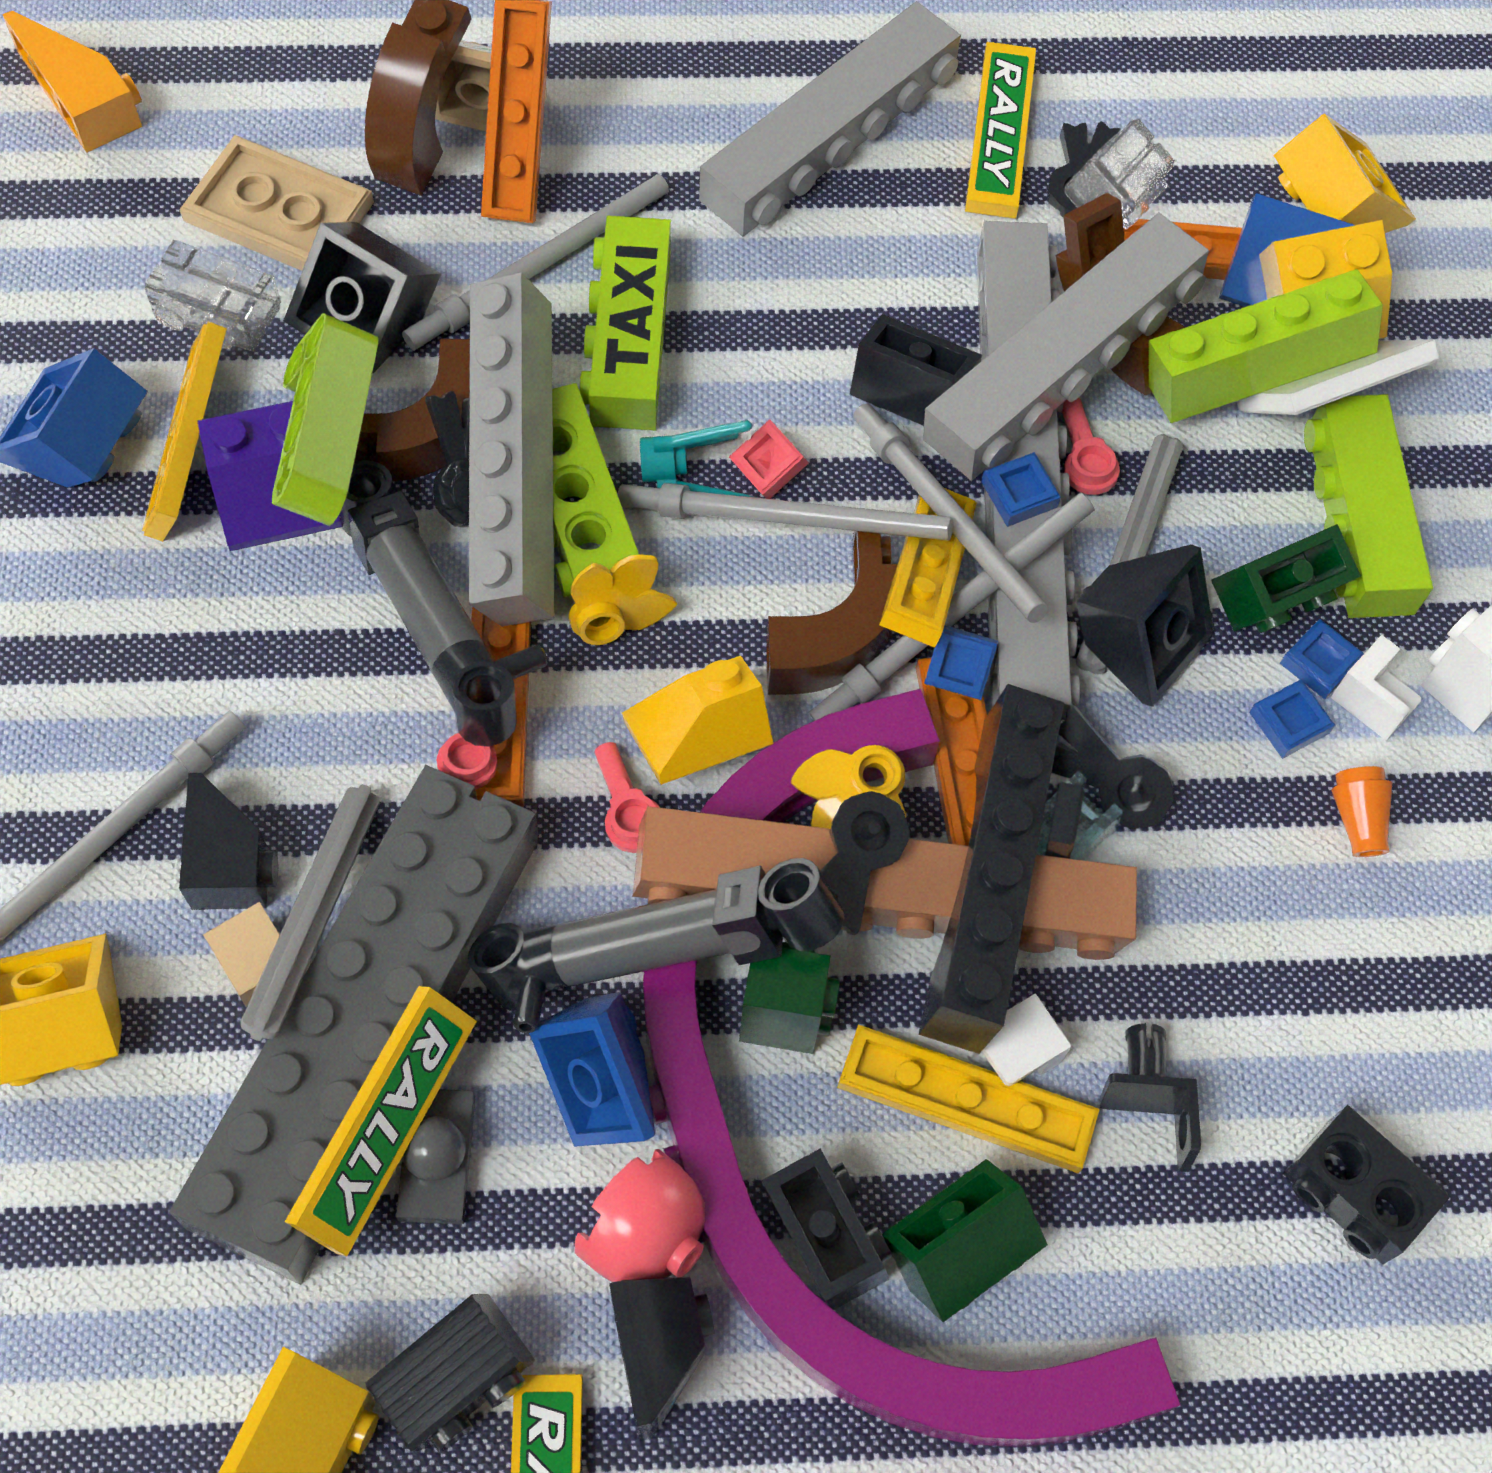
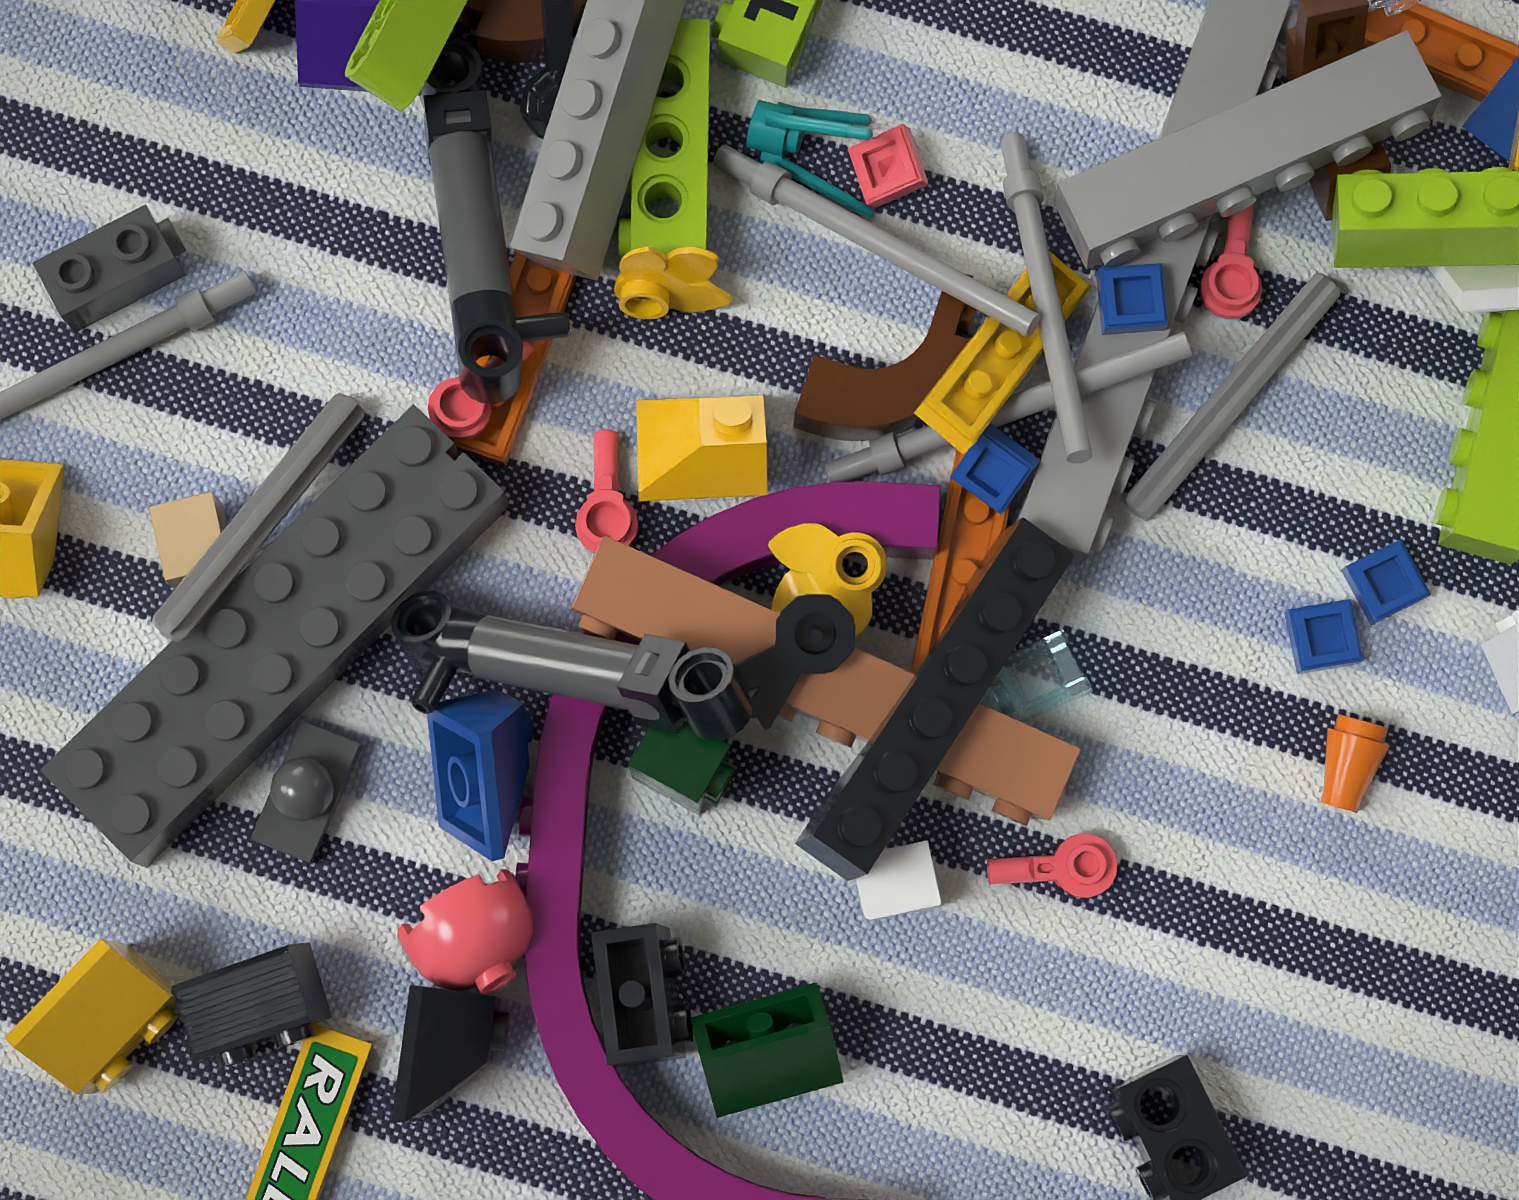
camera: 20 degrees right, 15 degrees up
(102, 743) = (111, 267): none -> dark grey brick
(222, 852) = (194, 421): black slope -> none
(381, 1121) = (259, 751): tile -> none
(907, 368) = (1074, 114): black brick -> none
(968, 1099) = (829, 912): yellow tile -> none
(1065, 820) = (1021, 682): black tile -> none
(1132, 783) = (1117, 658): black piece -> none
(1148, 618) = (1209, 486): black slope -> none
(1151, 1090) = (1009, 966): black bracket -> none
(1172, 979) = (1080, 866): none -> coral plate
(1285, 578) = (1377, 489): dark green brick -> none
(1375, 693) = (1426, 639): white panel -> none

